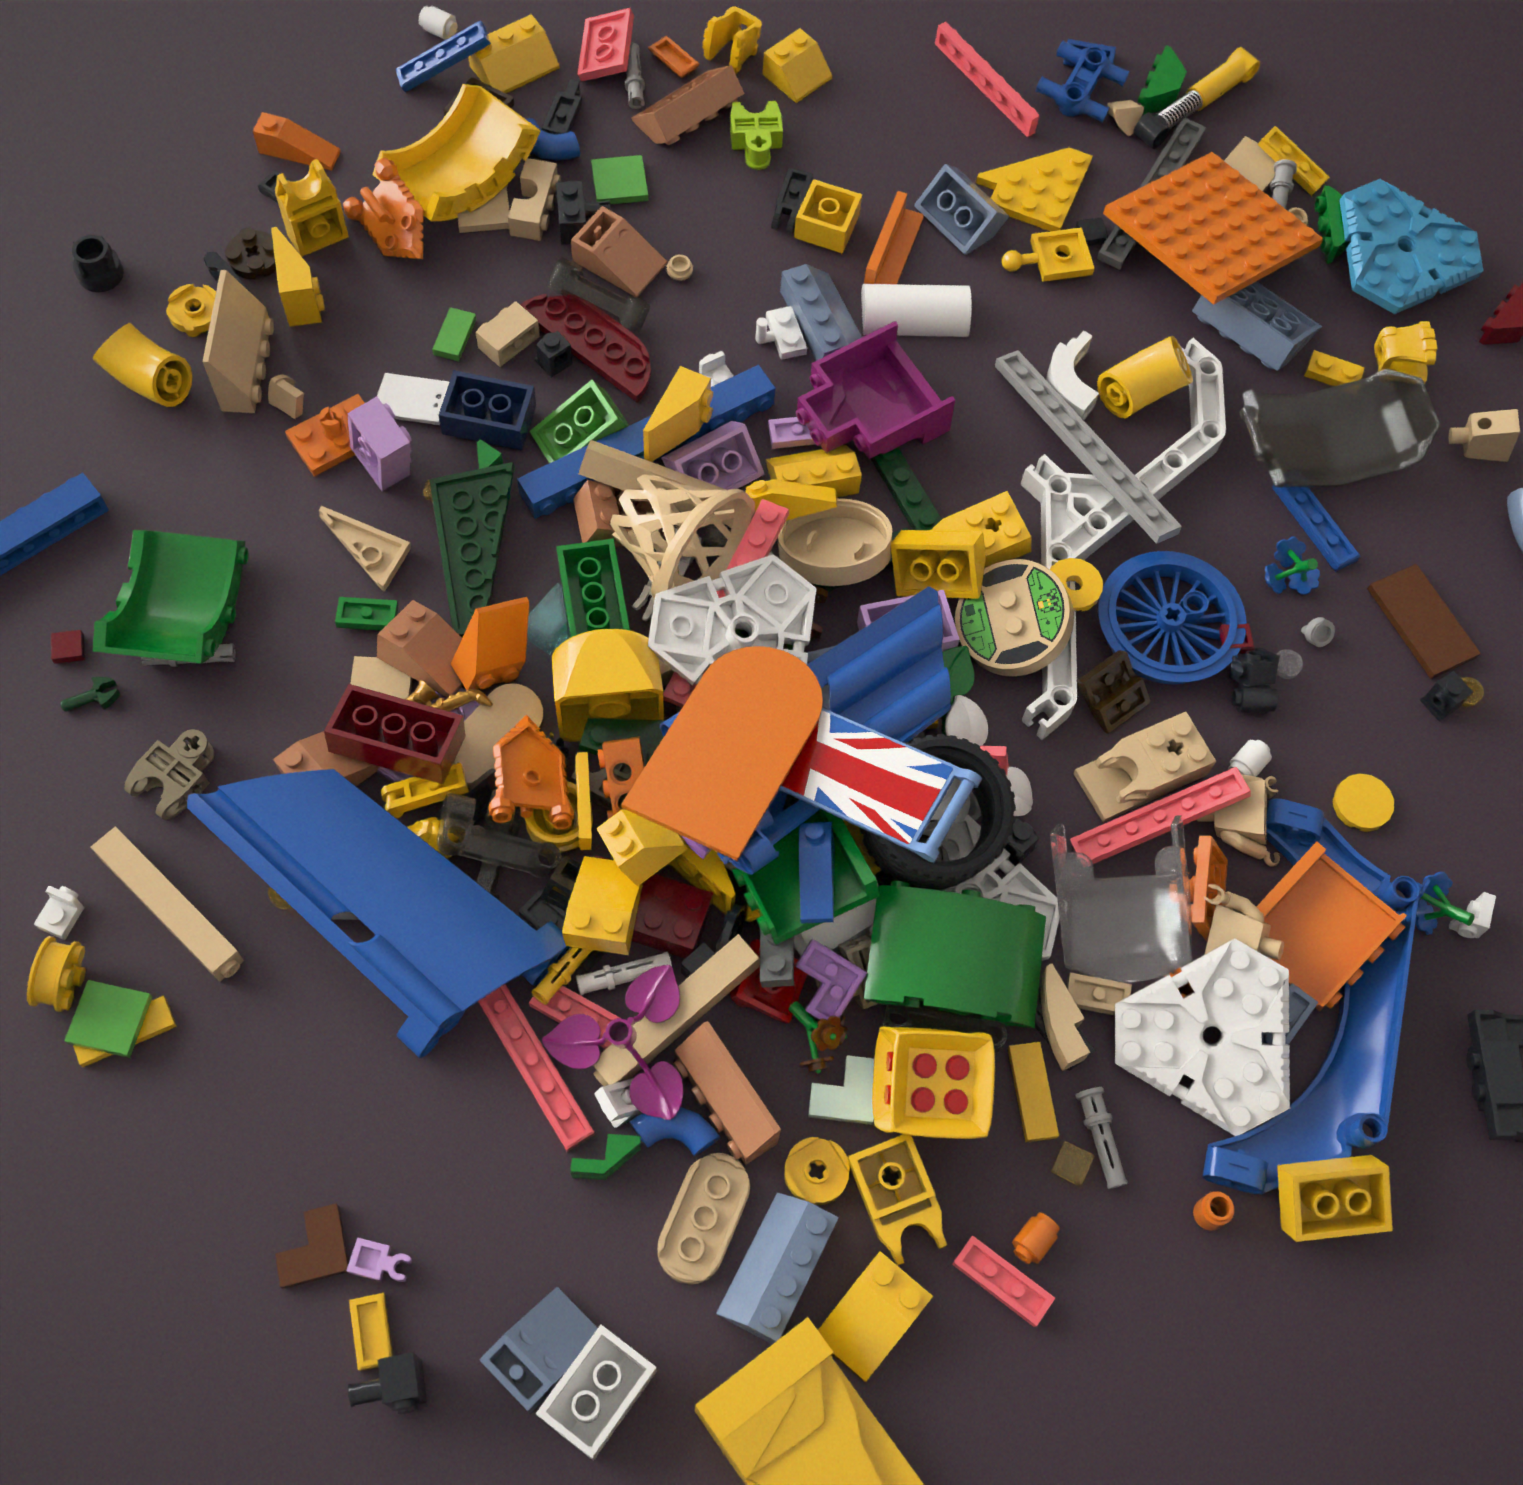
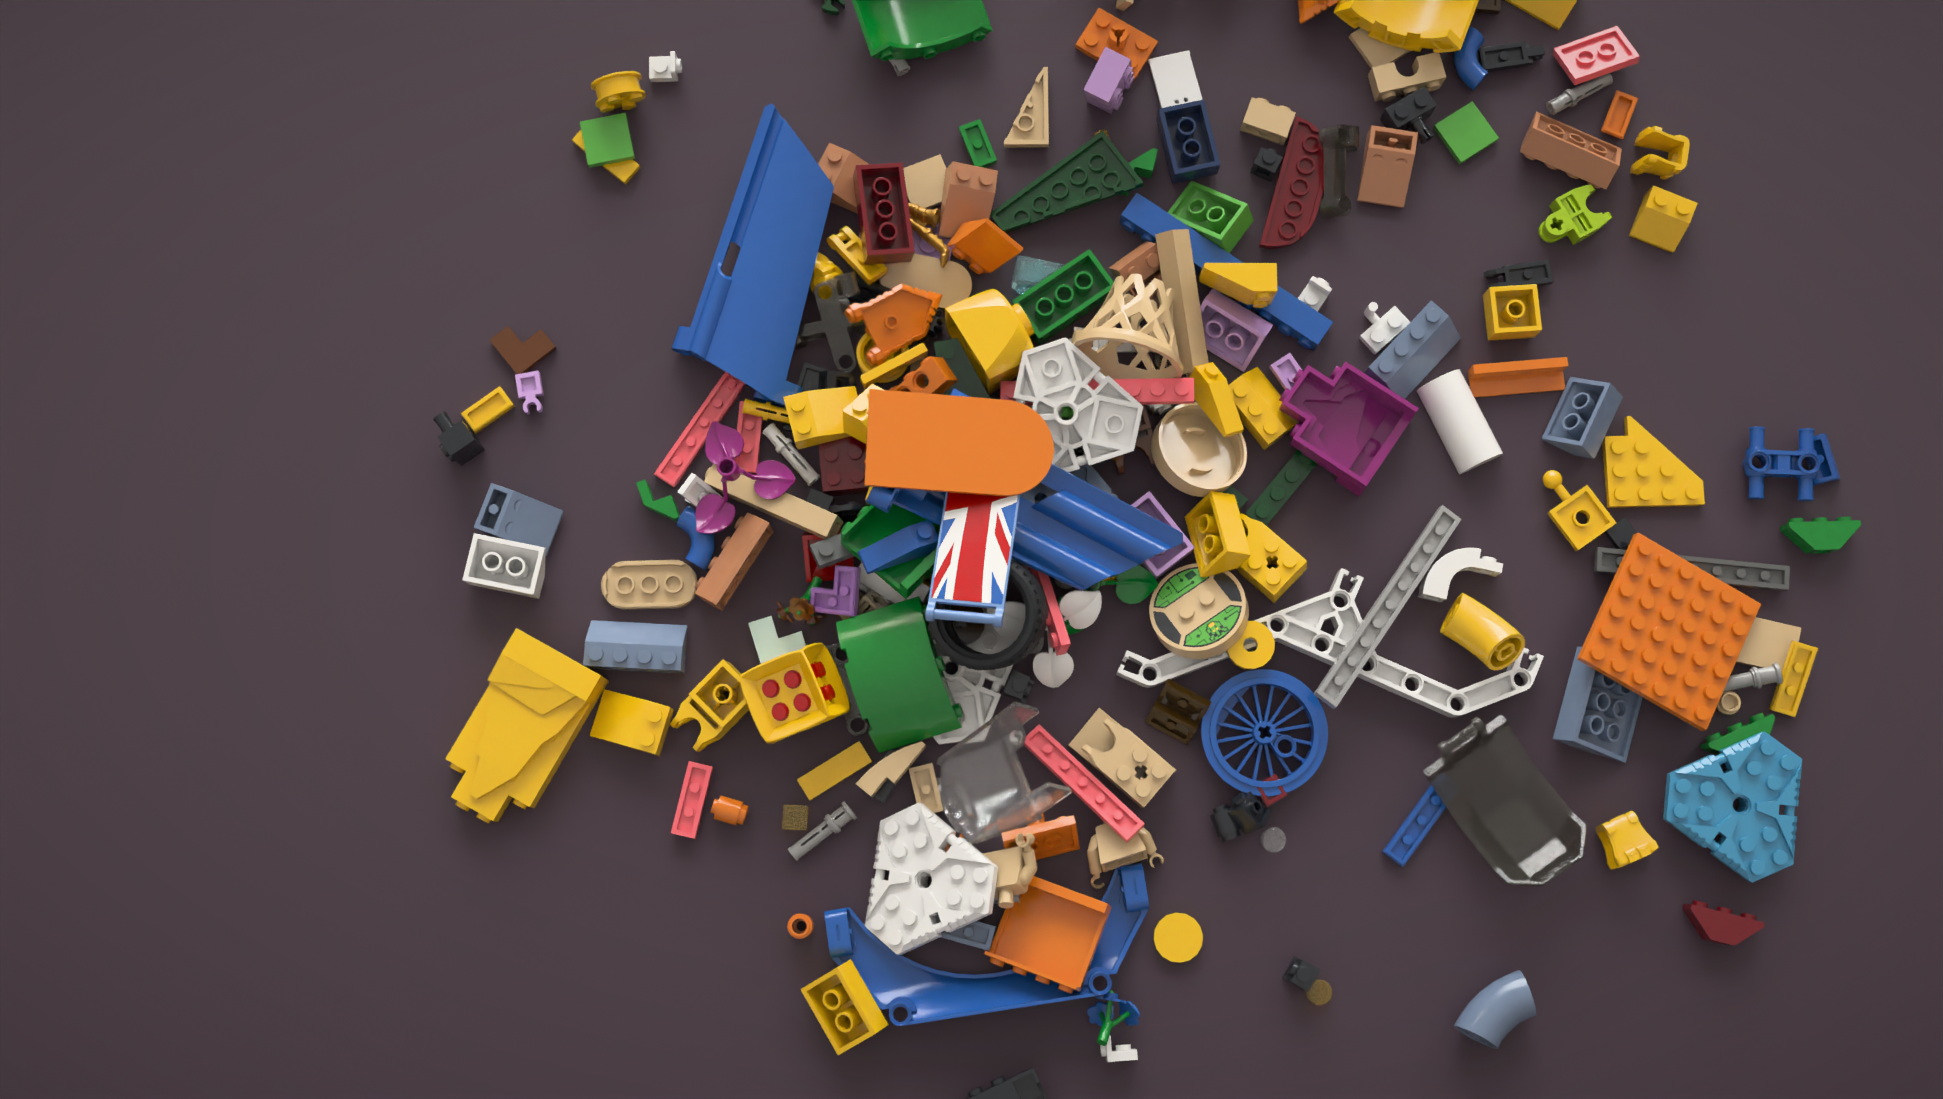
camera: 70 degrees right, 15 degrees up
(168, 904) = (700, 132): tan brick -> none
(175, 770) = (797, 83): dark tan piece -> none
(454, 334) = (1249, 82): bright green tile -> none
(679, 267) = (1402, 220): tan plate -> none
(821, 1153) = (710, 631): yellow plate -> none
(987, 79) = (1735, 390): coral plate -> none
(1126, 114) = (1766, 514): tan tile -> none
(1238, 68) = (1877, 594): piece -> none
(1251, 758) = (1170, 837): white brick -> none
(1303, 575) = (1358, 826): blue plant -> none
(1319, 631) = (1312, 854): light grey tile -> none
(1332, 369) = (1581, 788): yellow plate -> none
(1423, 621) = (1367, 937): reddish brown tile -> none
(1488, 435) = (1573, 944): tan torso -> none

